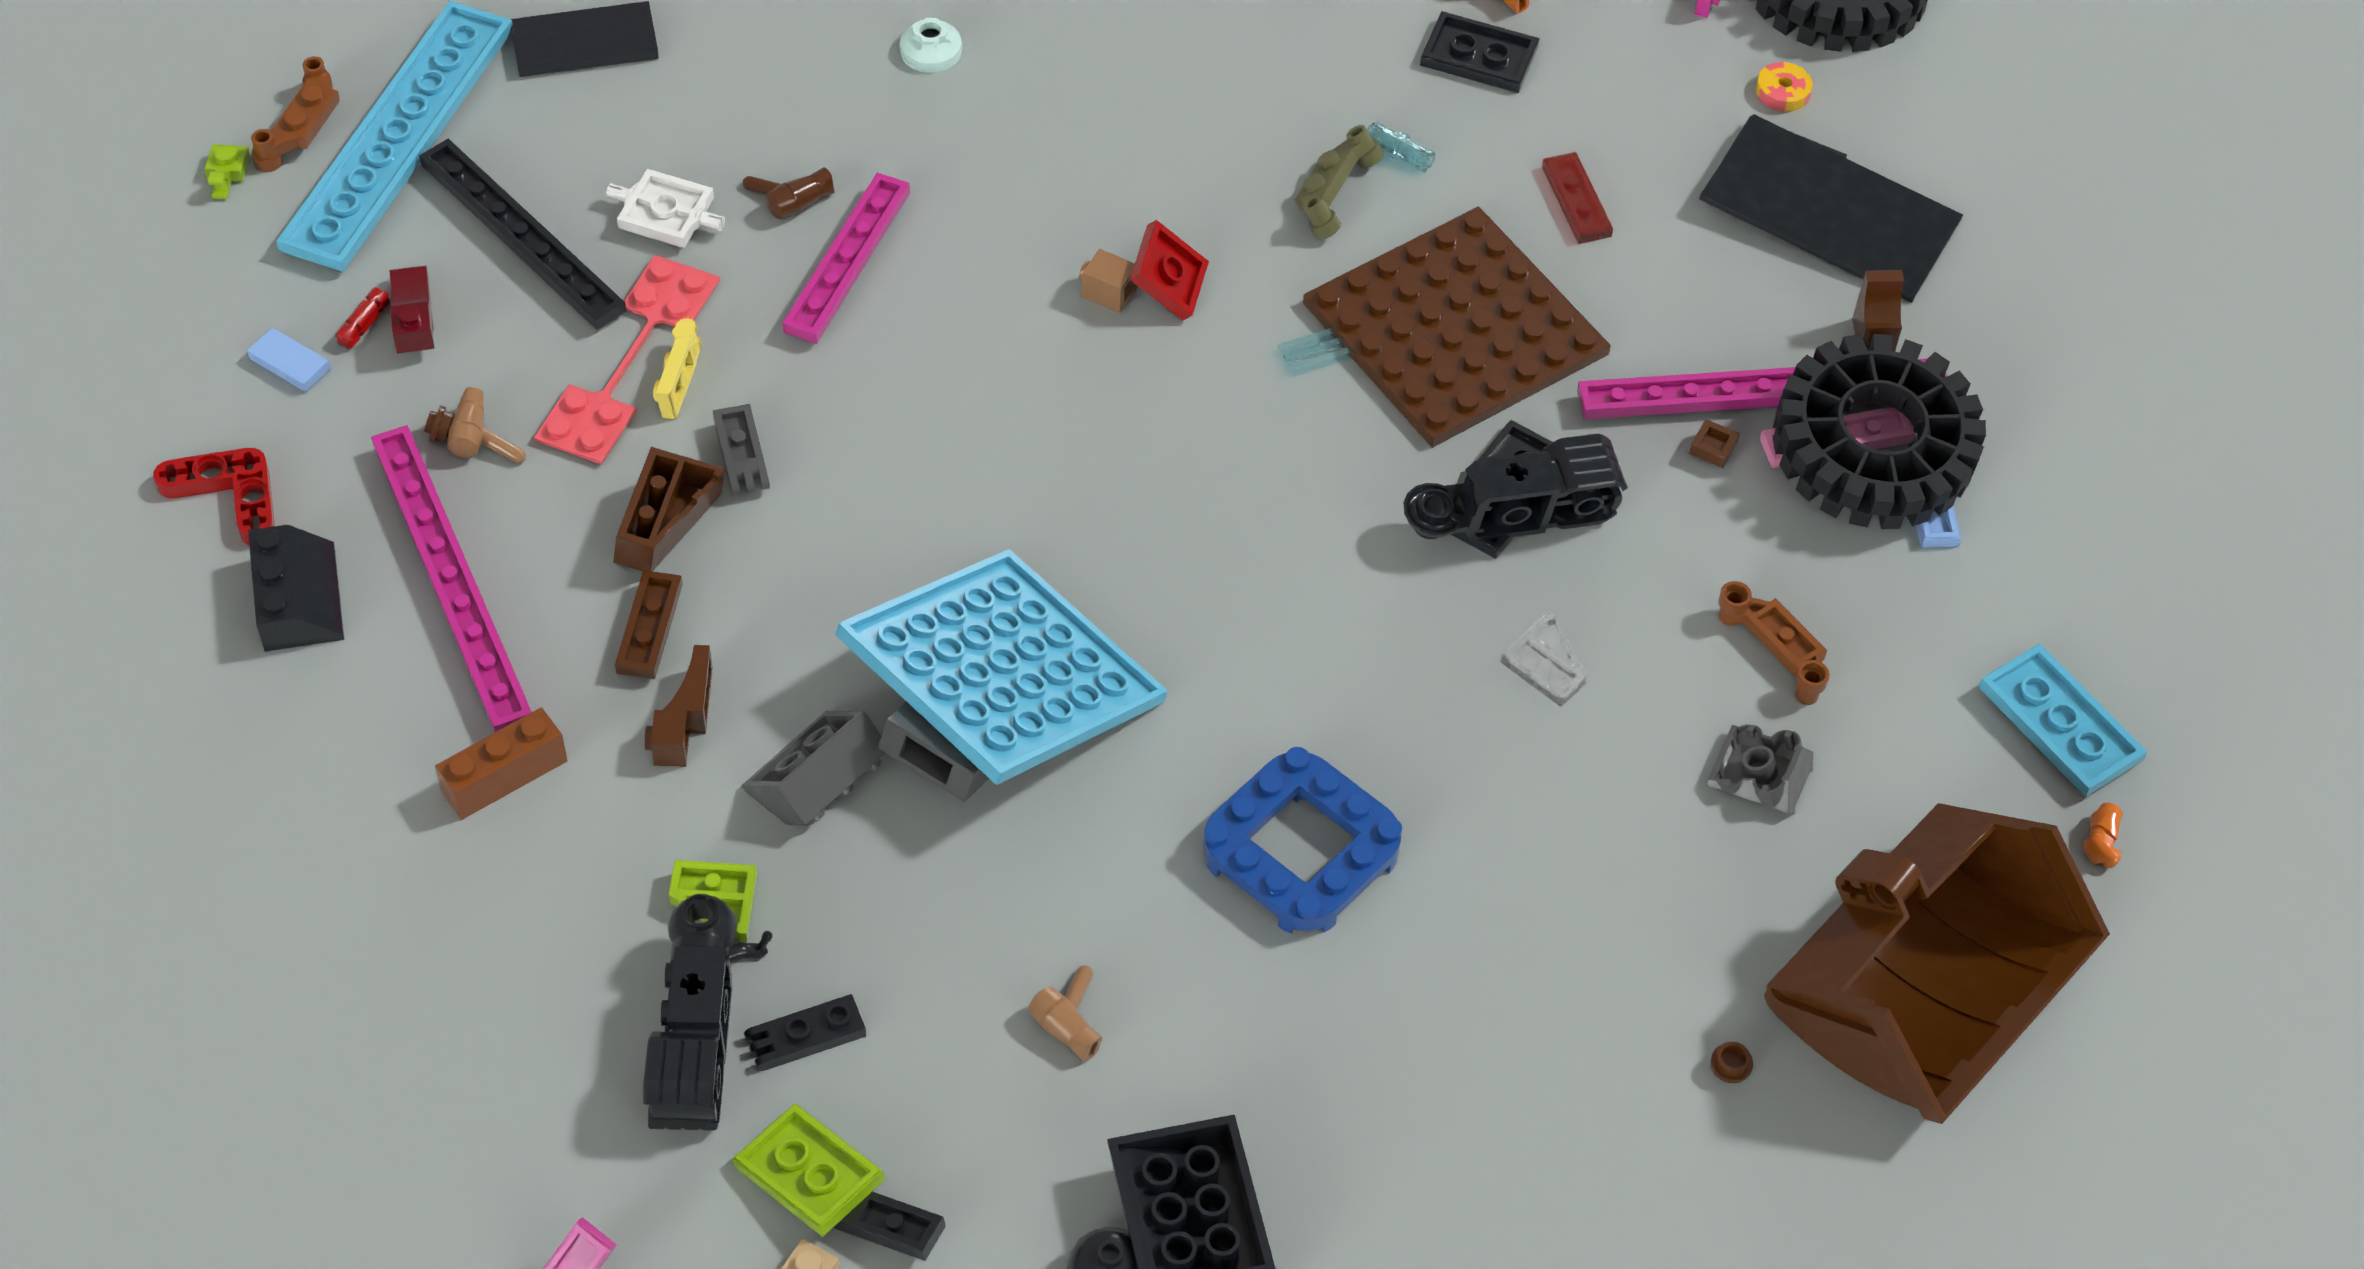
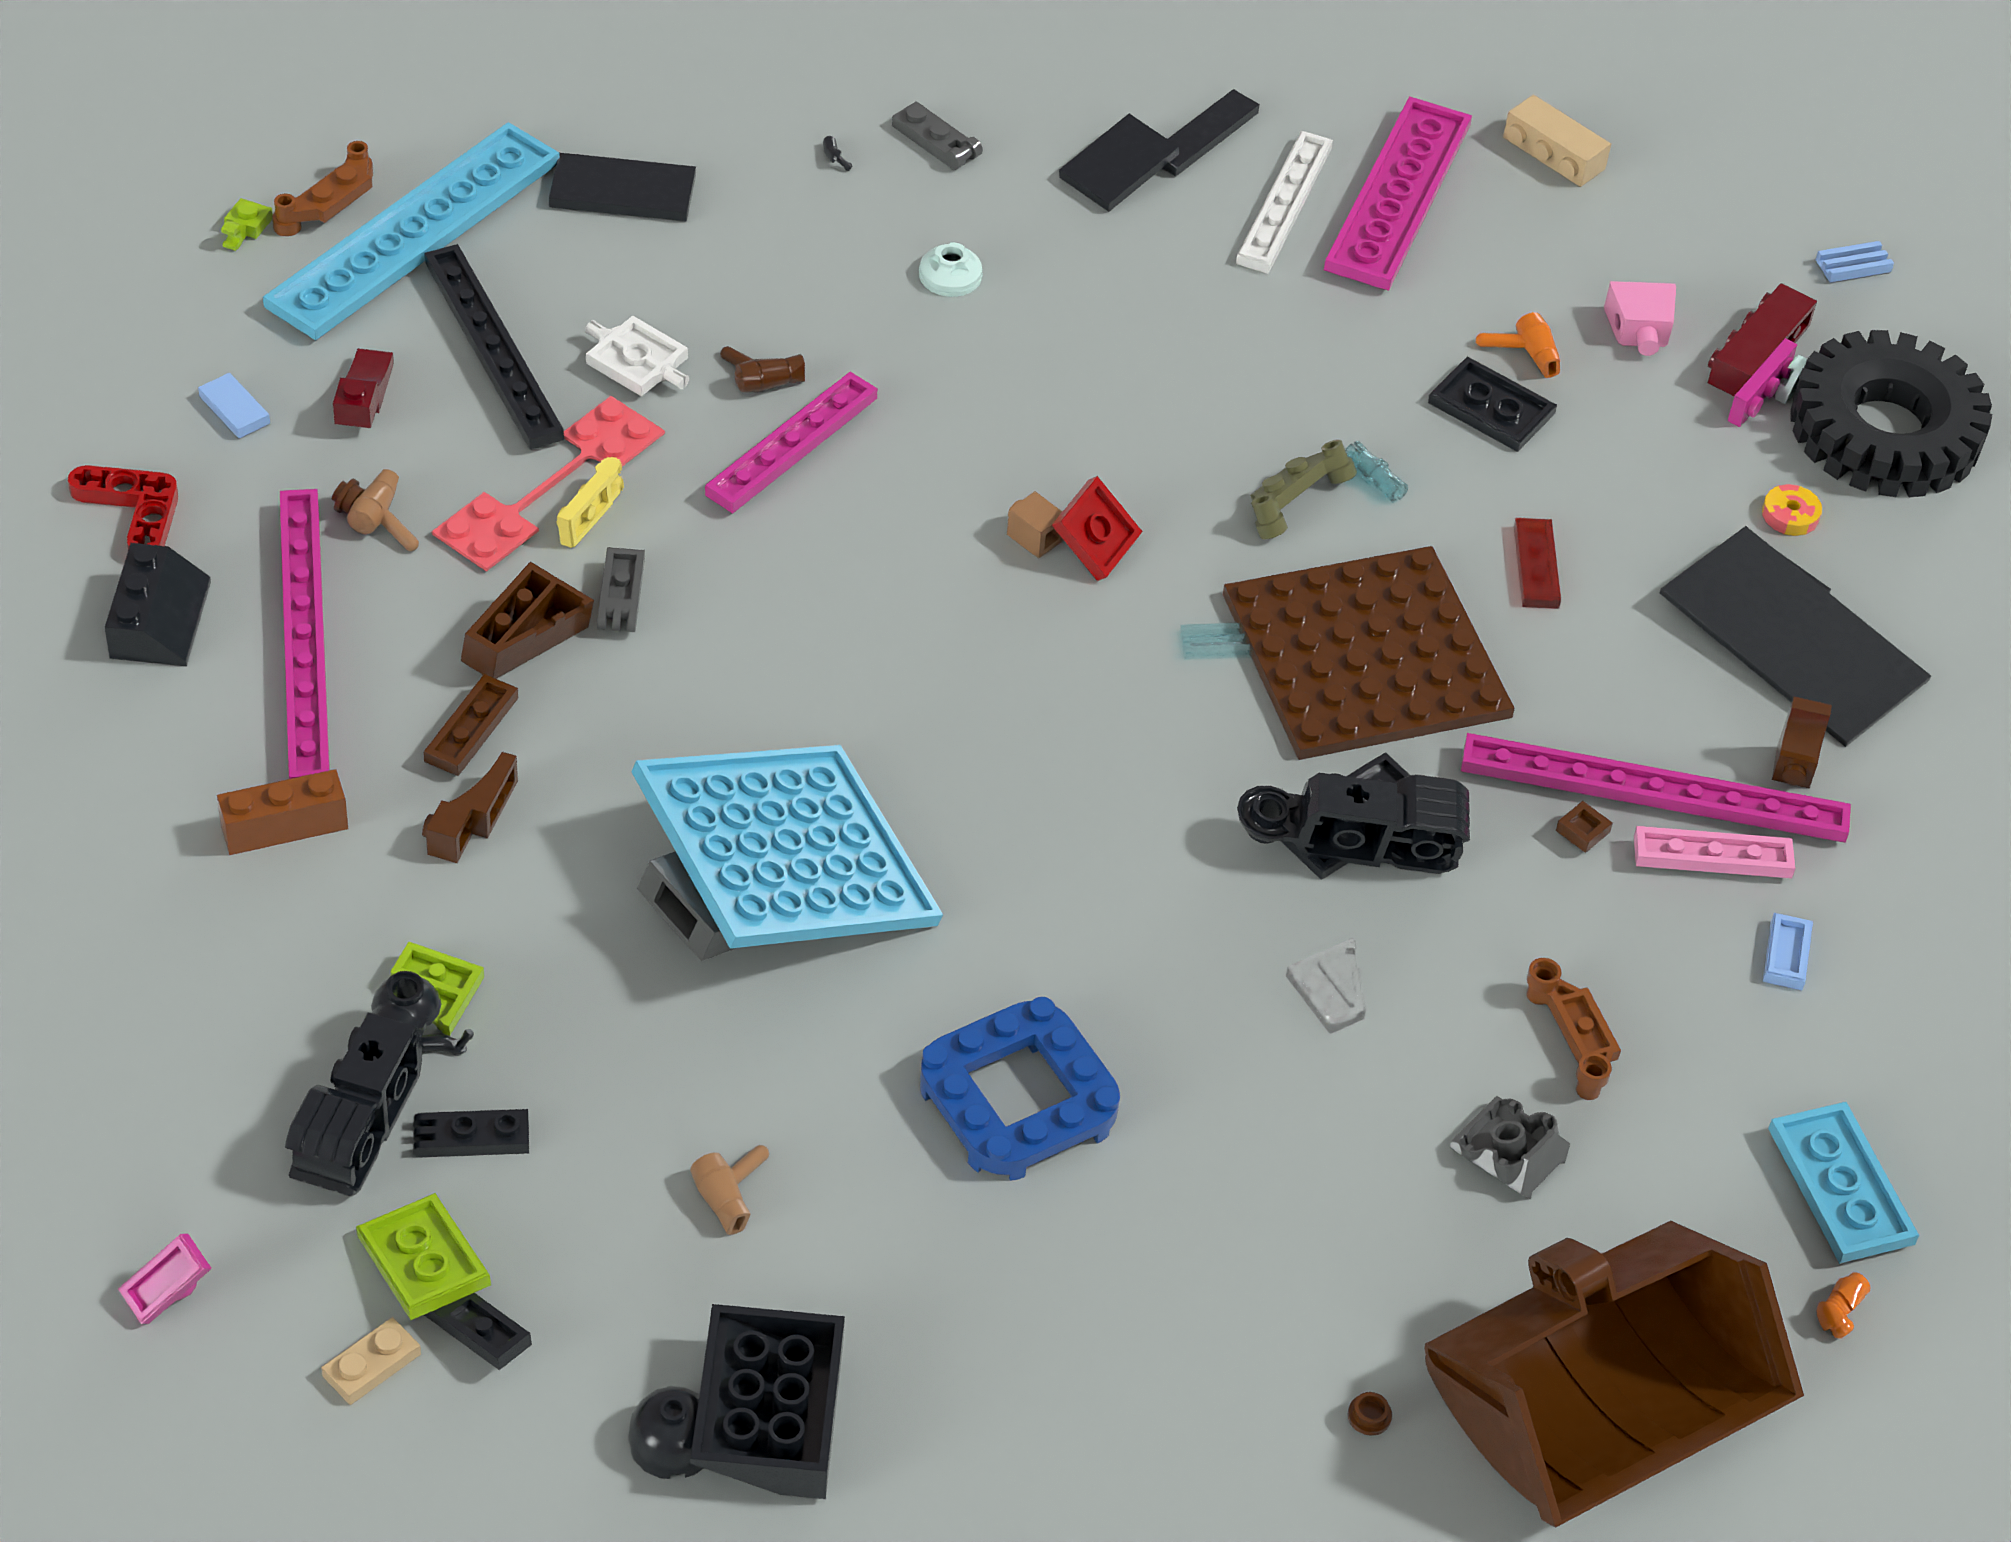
camera: 15 degrees right, 5 degrees down
(362, 318) = (315, 385): red axle -> none
(817, 767) = (577, 895): dark grey slope -> none
(1868, 480) = (1741, 905): black tyre -> none

